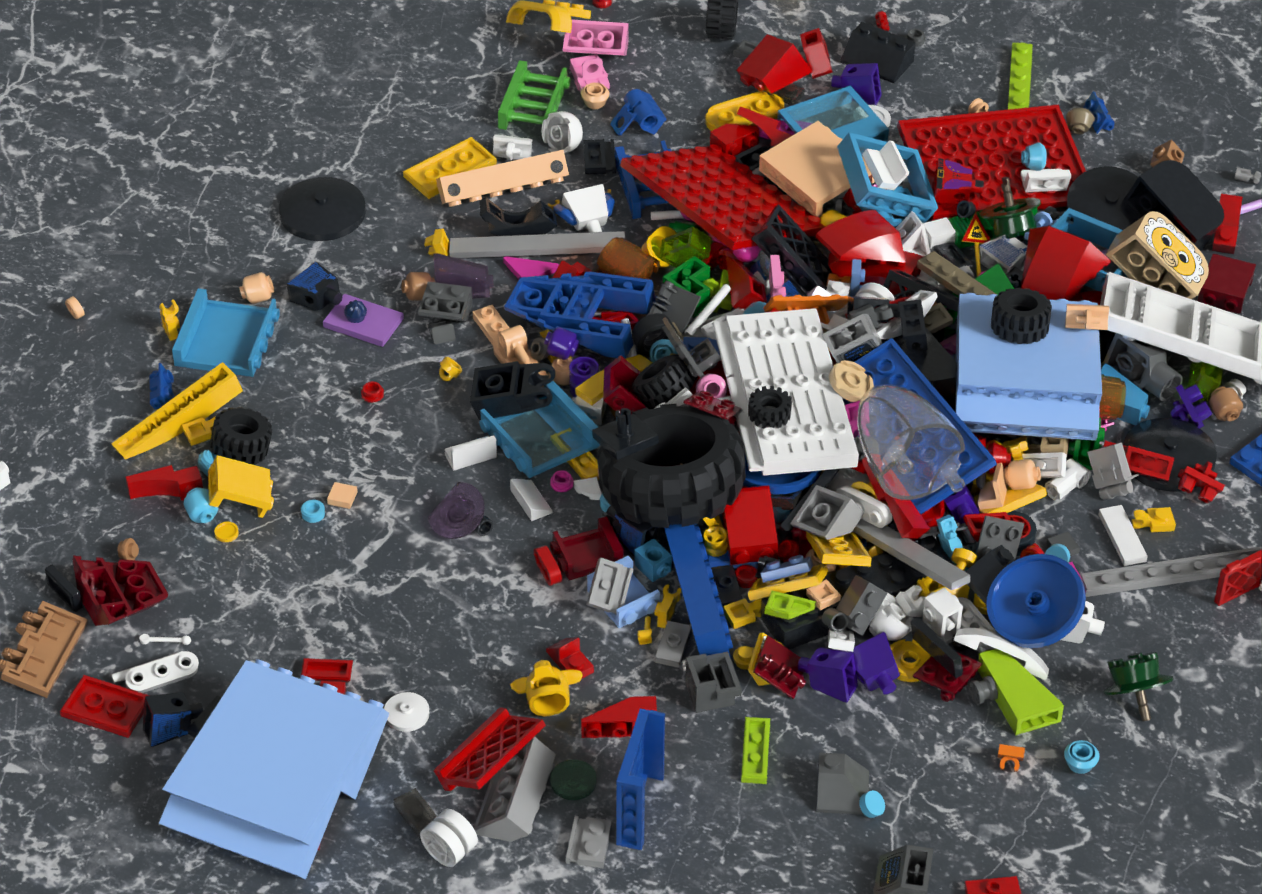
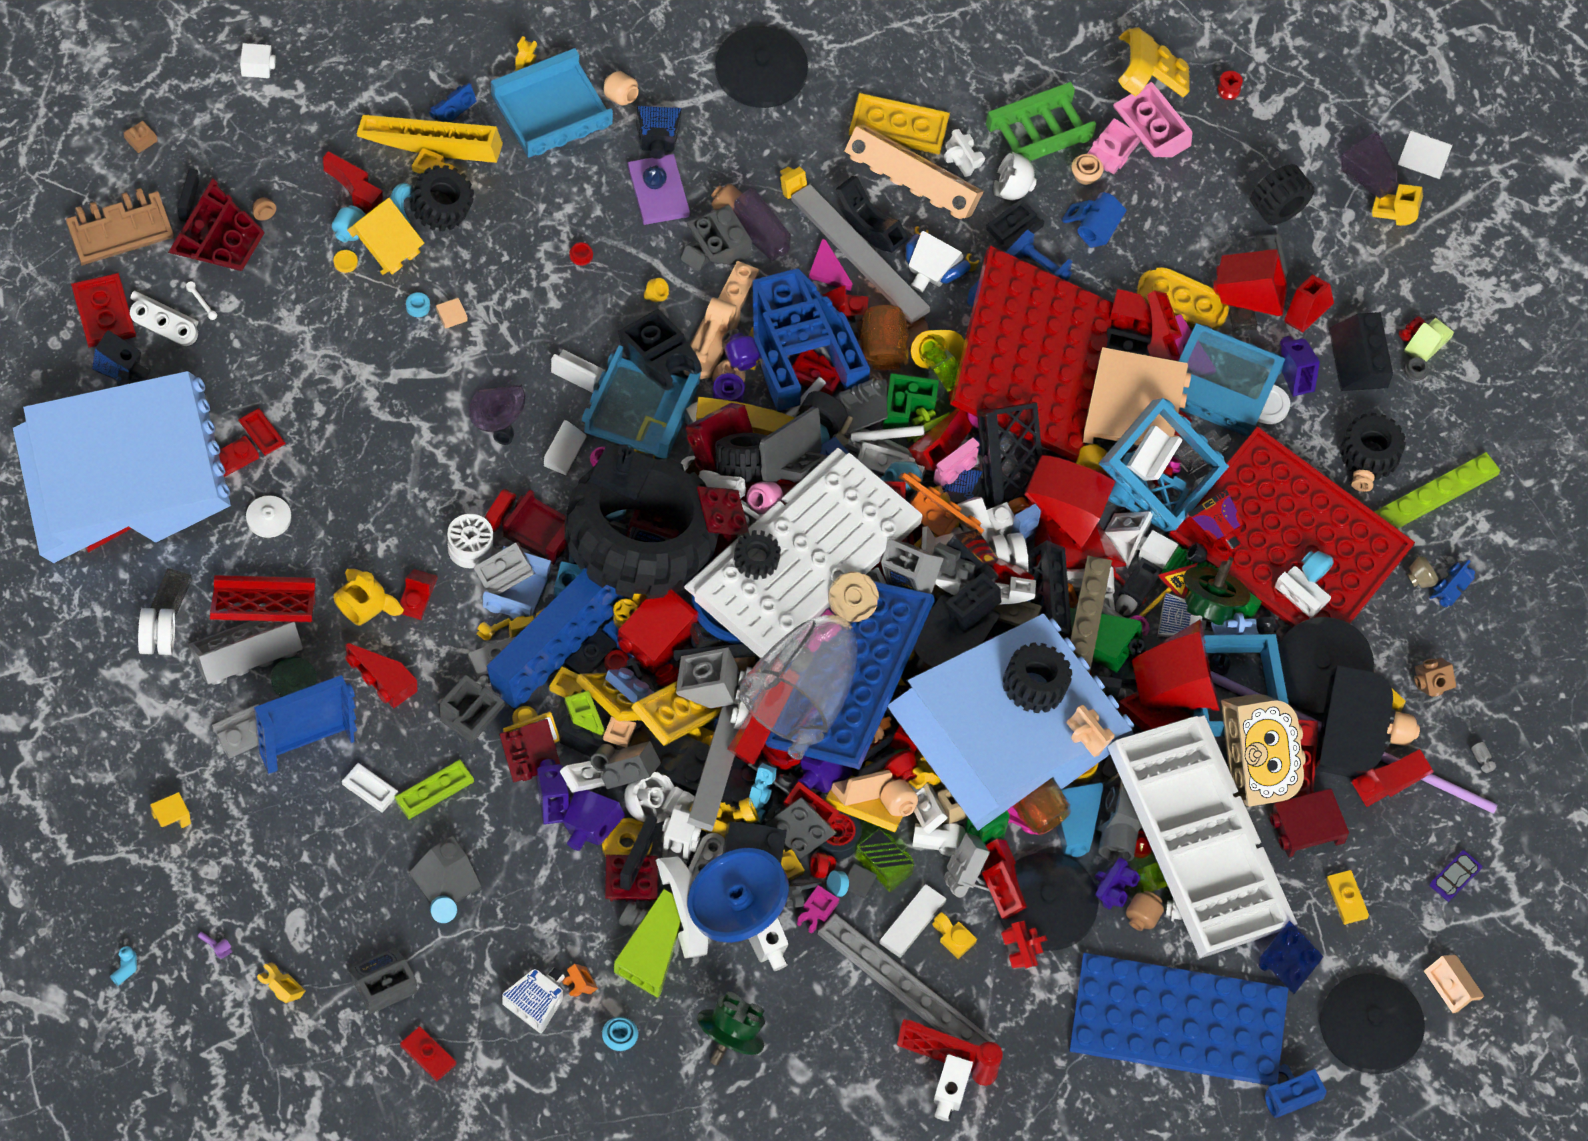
camera: 45 degrees right, 15 degrees up
(559, 596) = (470, 540): none -> white wheel
(716, 790) = (370, 787): none -> white tile
(899, 19) = (1428, 340): none -> yellowish green slope
(957, 86) = (1377, 430): none -> black tyre
(1004, 792) = (535, 997): none -> white torso
(1059, 517) = (885, 859): none -> clear neon green brick

